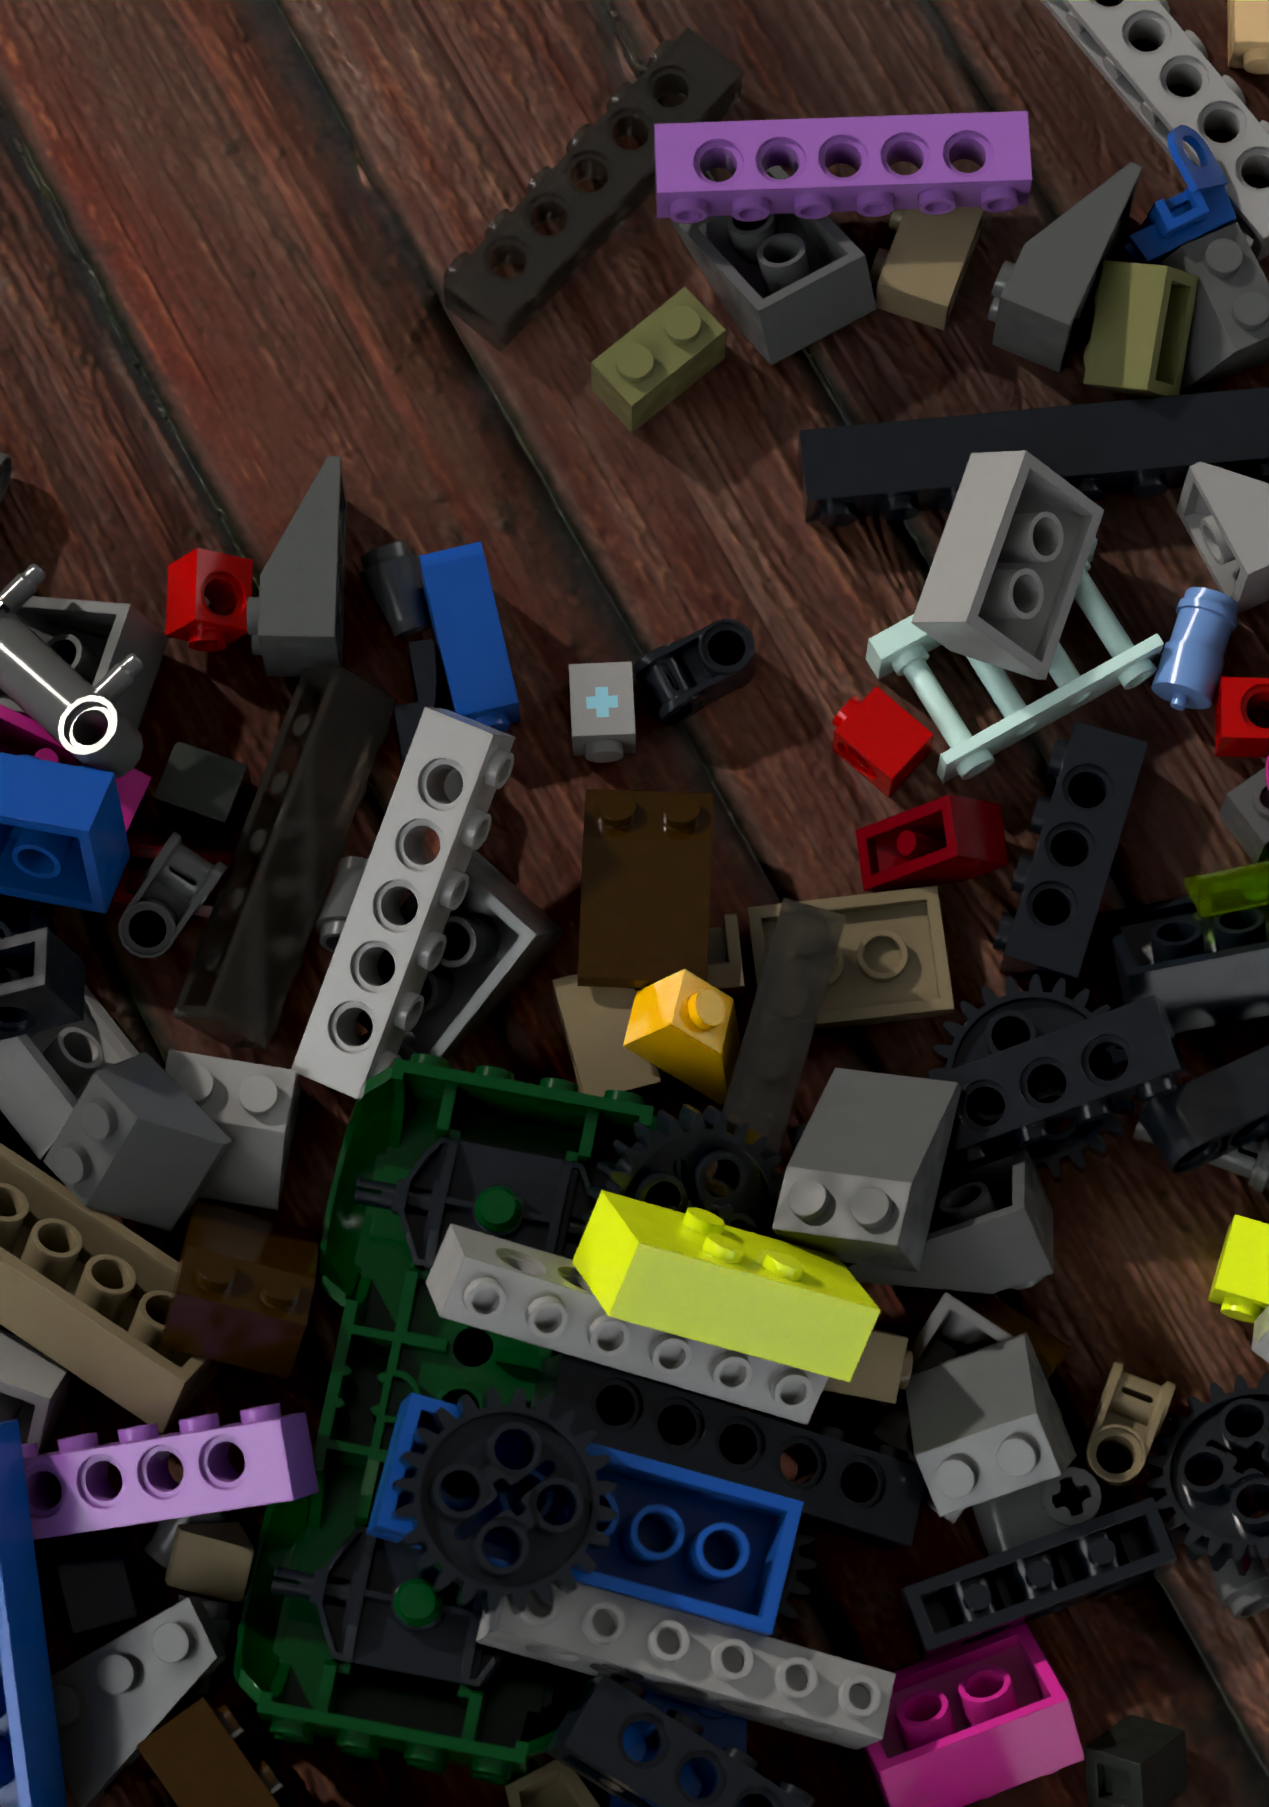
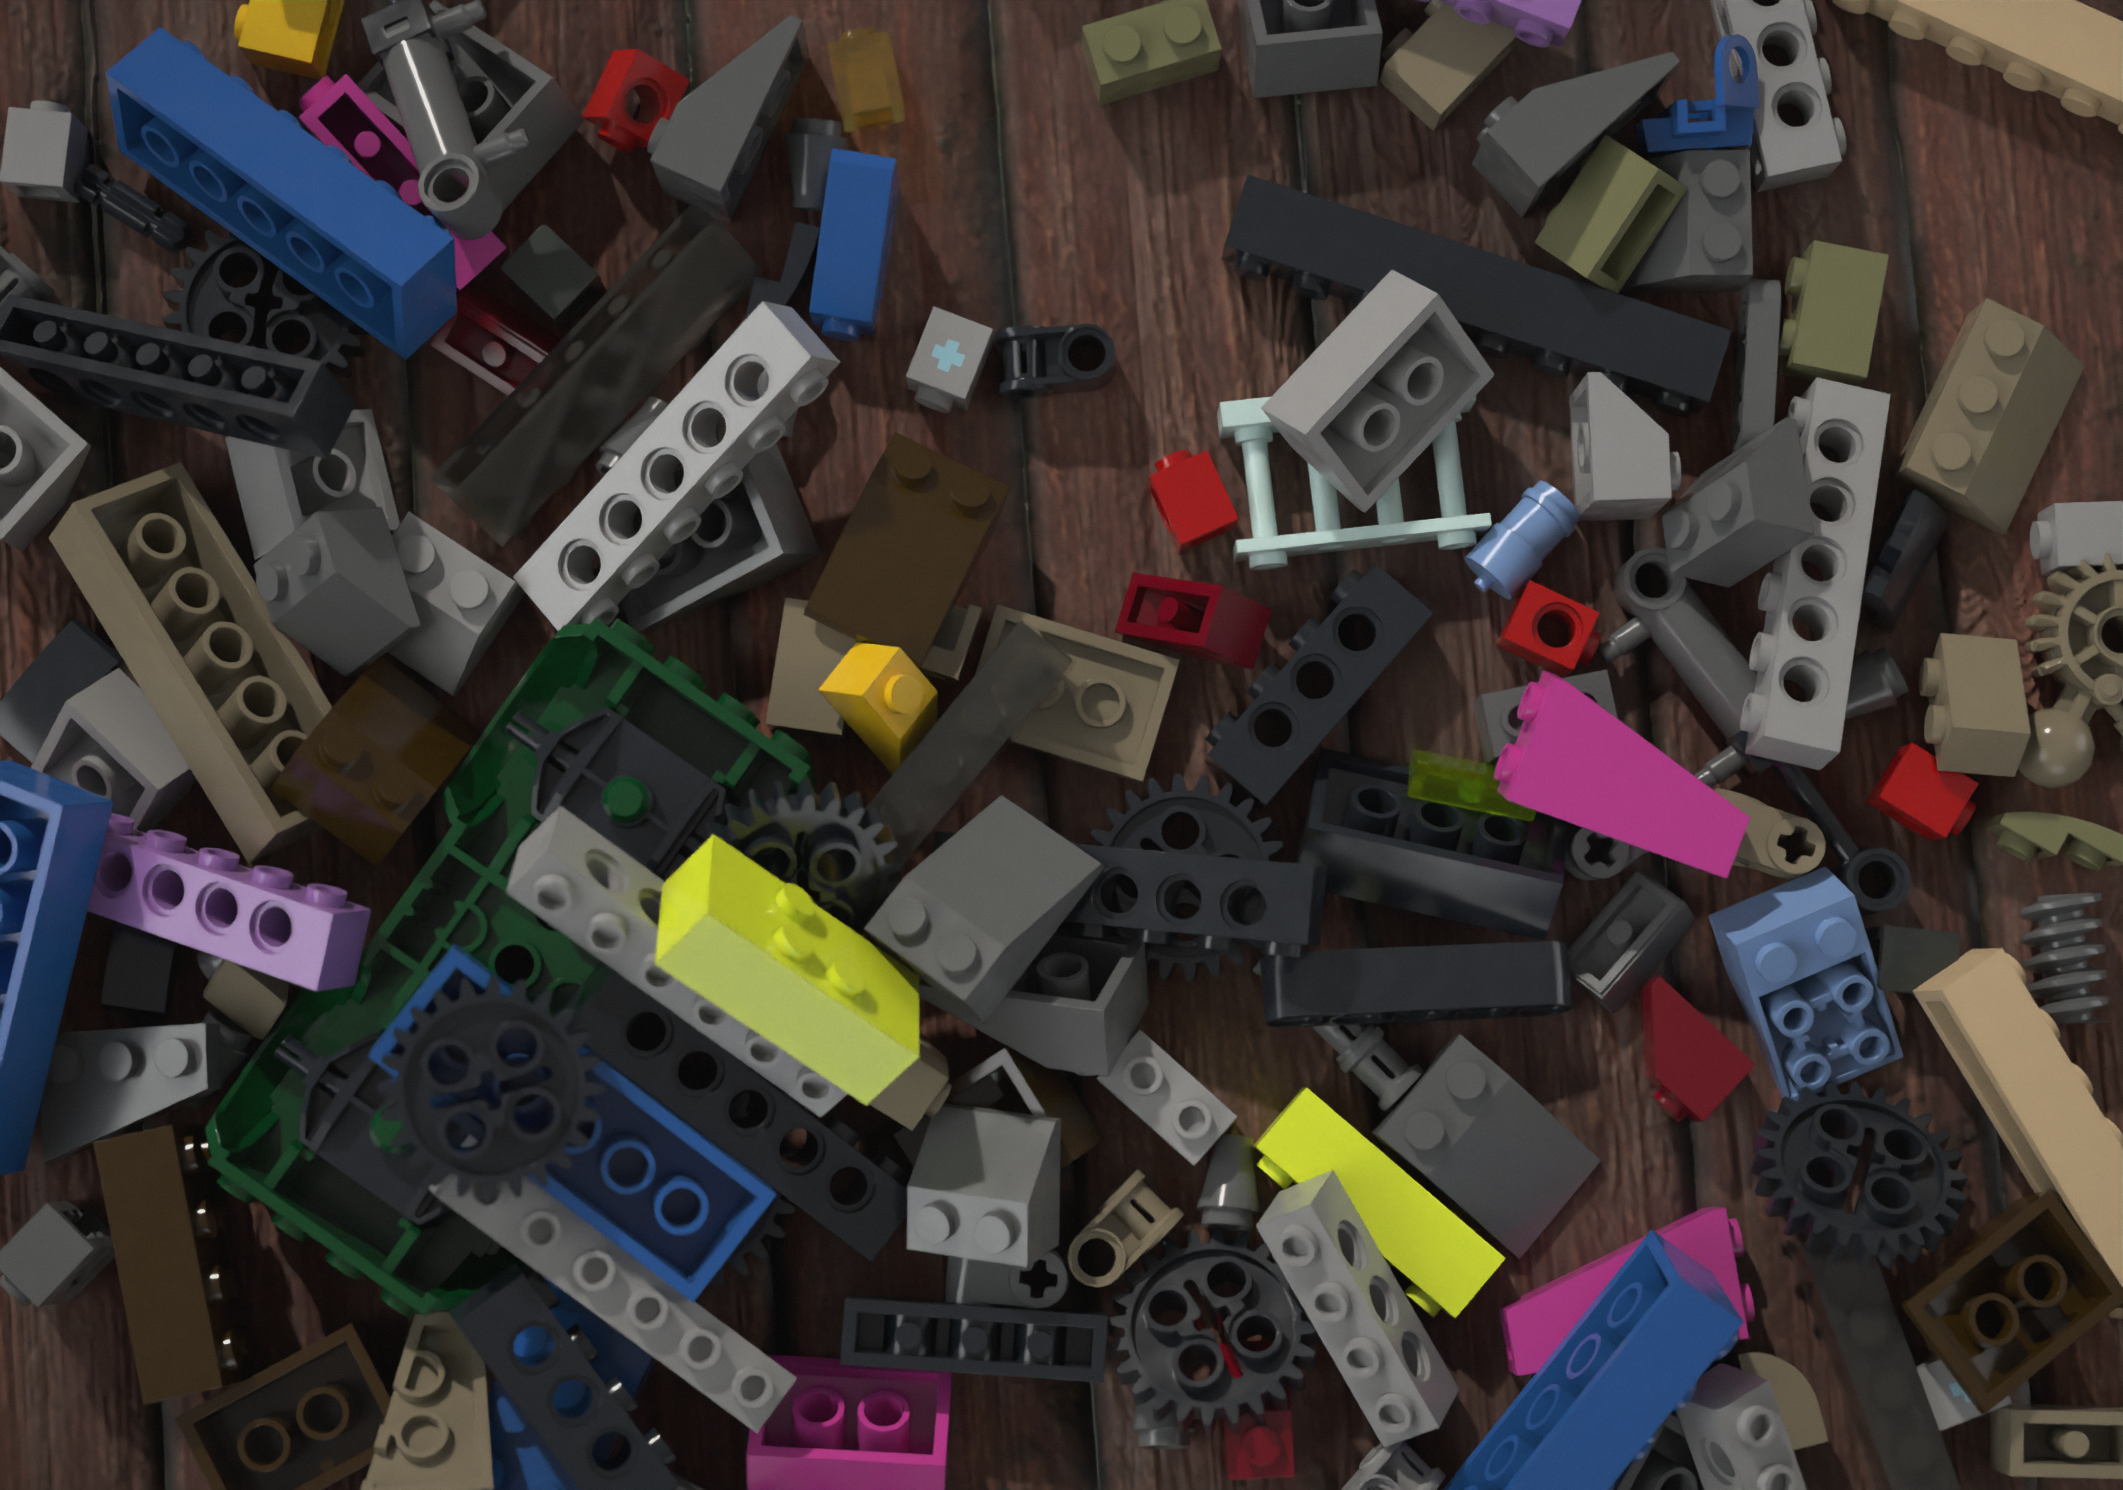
camera: 20 degrees right, 10 degrees up
(174, 889) = (480, 363): dark grey piece -> none
(412, 495) = (866, 79): none -> clear yellow brick
(1111, 1284) = (1167, 1098): none -> light grey brick
(1205, 1341) = (1230, 1186): none -> dark grey cone

